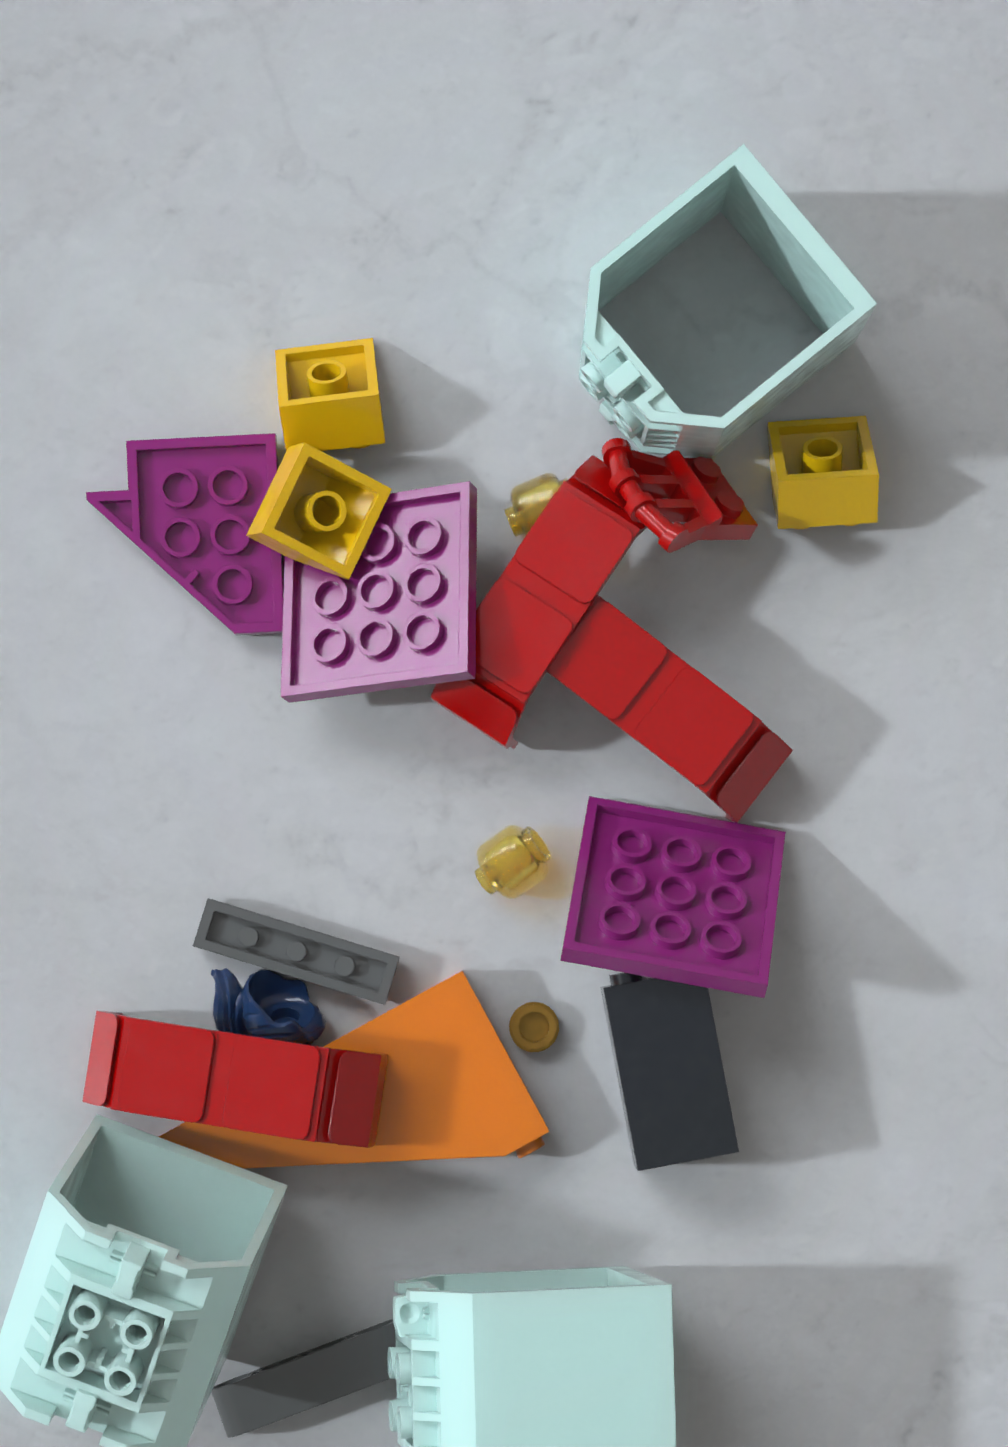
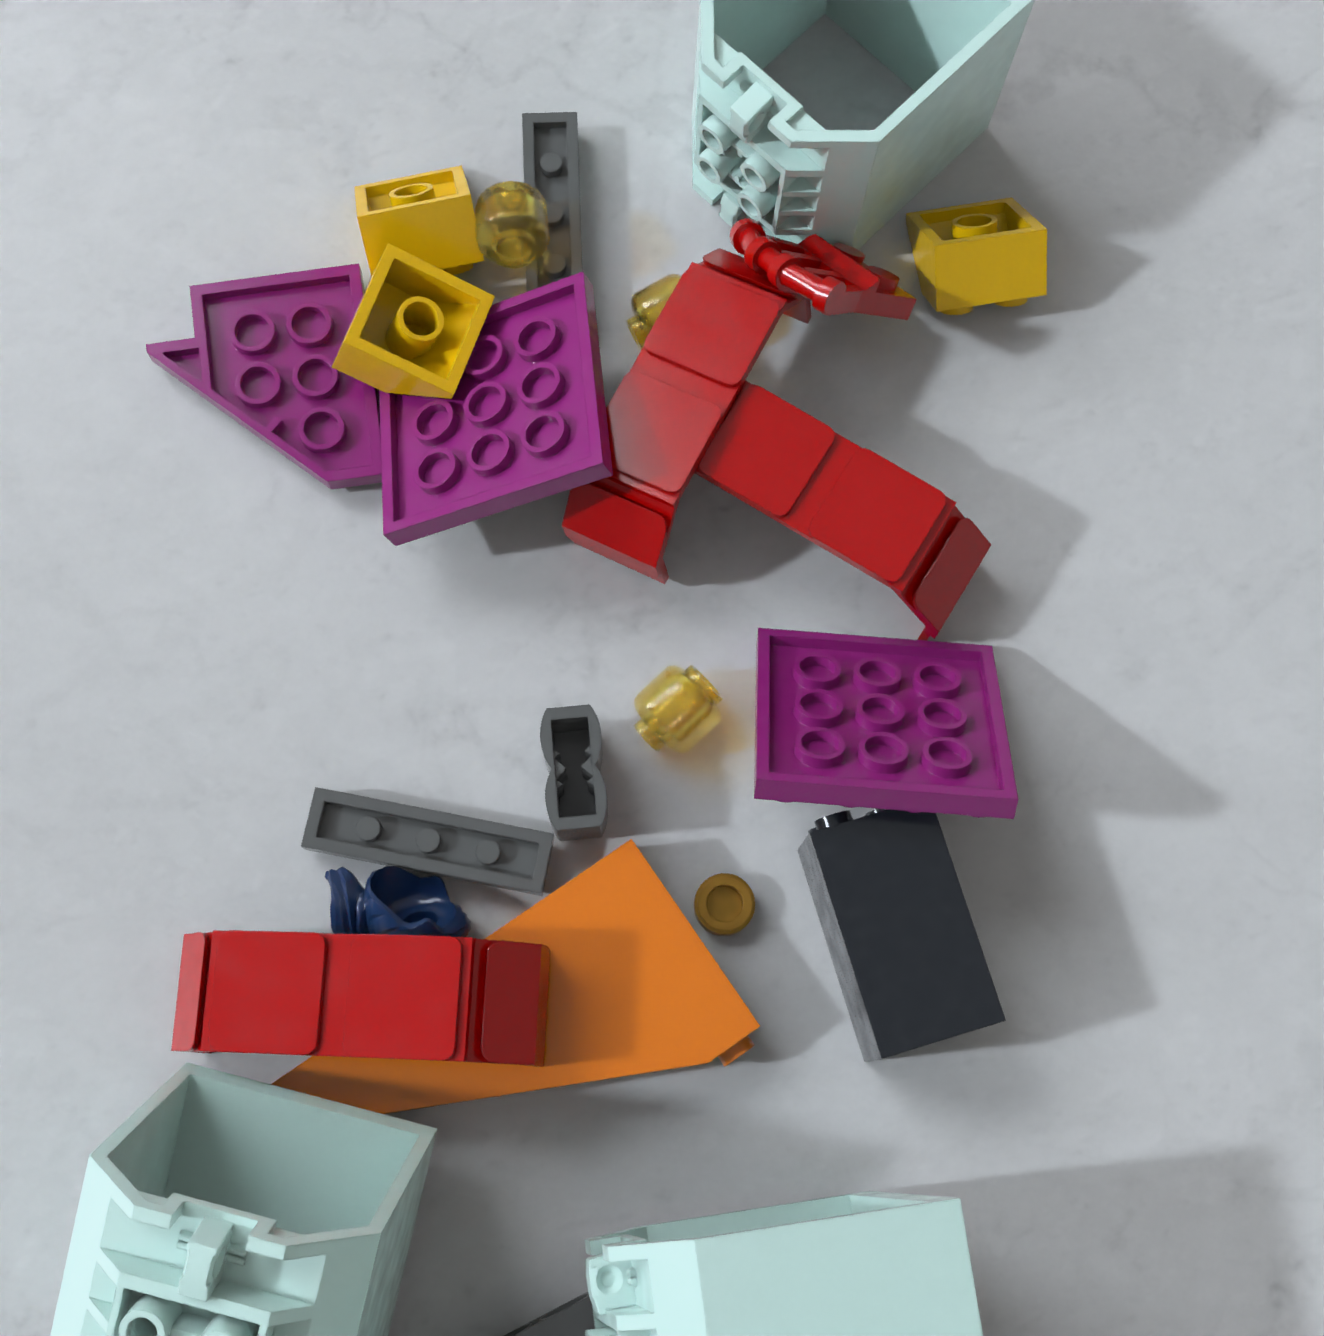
camera: 10 degrees left, 10 degrees down
(412, 417) = (512, 224): none -> clear yellow head
(421, 894) = (574, 785): none -> dark grey brick
(450, 393) = (553, 169): none -> dark grey plate

